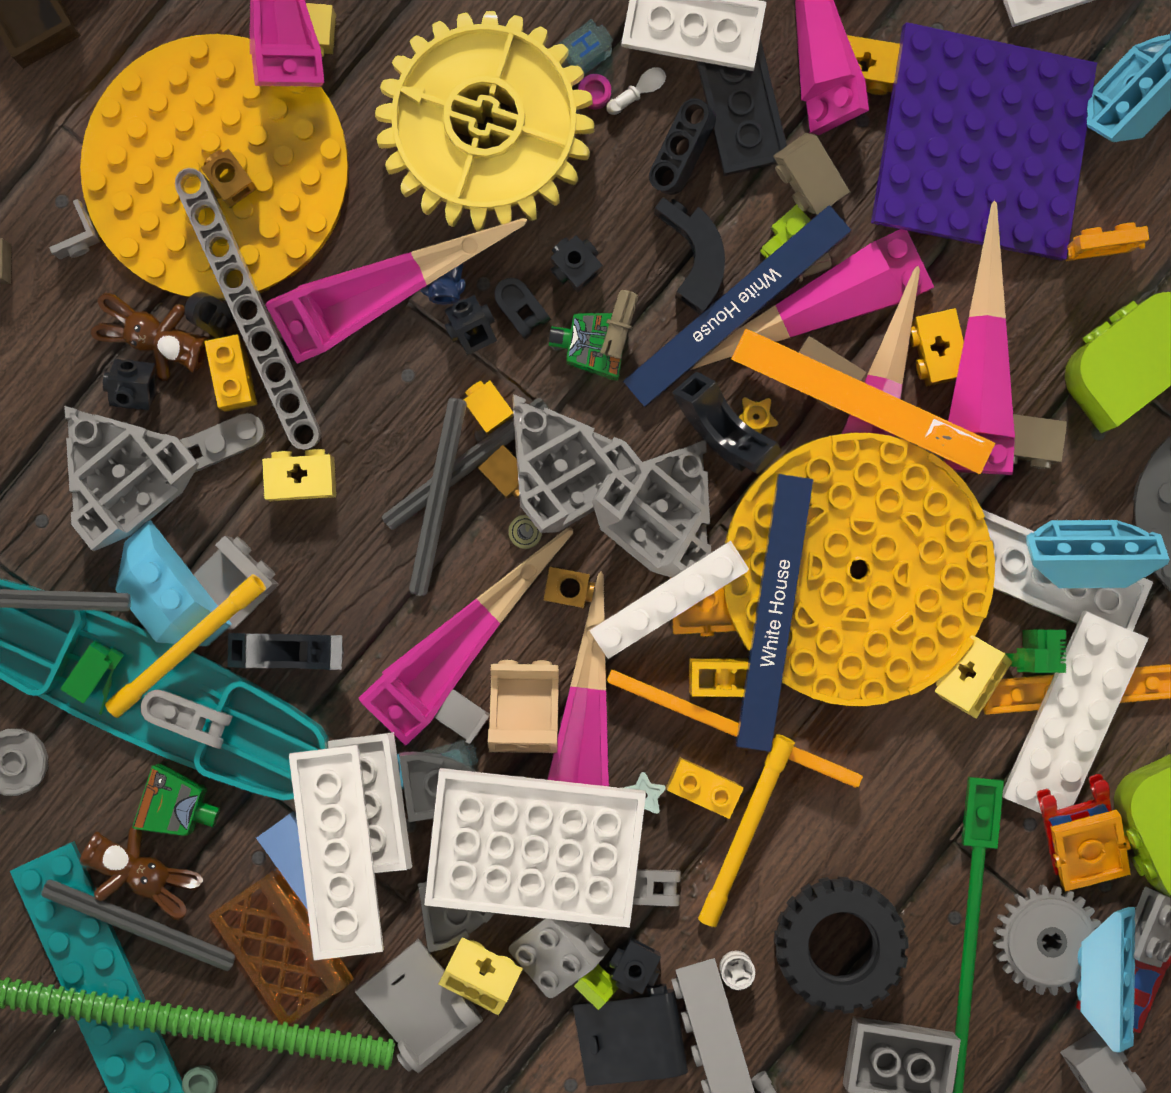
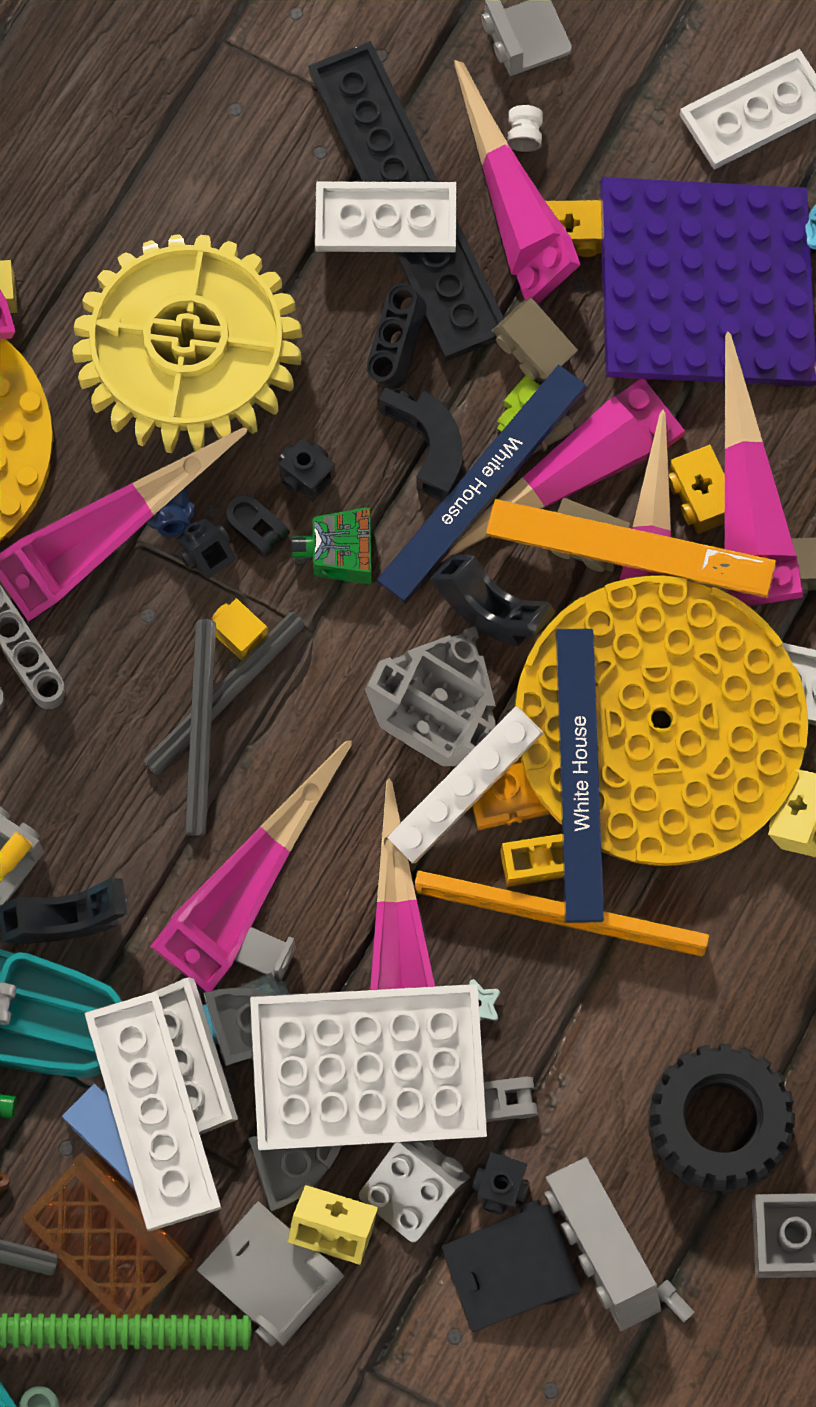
camera: 10 degrees left, 15 degrees down
(317, 484) = (68, 738): light yellow brick -> none
(502, 472) = (269, 692): pearl gold brick -> none
(524, 532) = (300, 751): olive tile -> none
(524, 707) = (330, 928): tan panel -> none
(554, 581) = (346, 786): pearl gold brick -> none
(561, 465) = (326, 670): light grey wedge -> none
(588, 46) = (283, 255): clear light blue brick -> none
(596, 986) = (463, 1215): lime plate -> none
(599, 88) = (303, 301): dark pink tile -> none
(619, 324) = (362, 517): dark tan axle -> none
(648, 82) = (350, 284): white piece -> none
(704, 787) = (541, 980): yellow brick -> none
(739, 975) = (615, 1163): white wheel -> none
(762, 409) = (526, 584): yellow plate -> none
(774, 765) = (578, 1095): yellow piece -> none

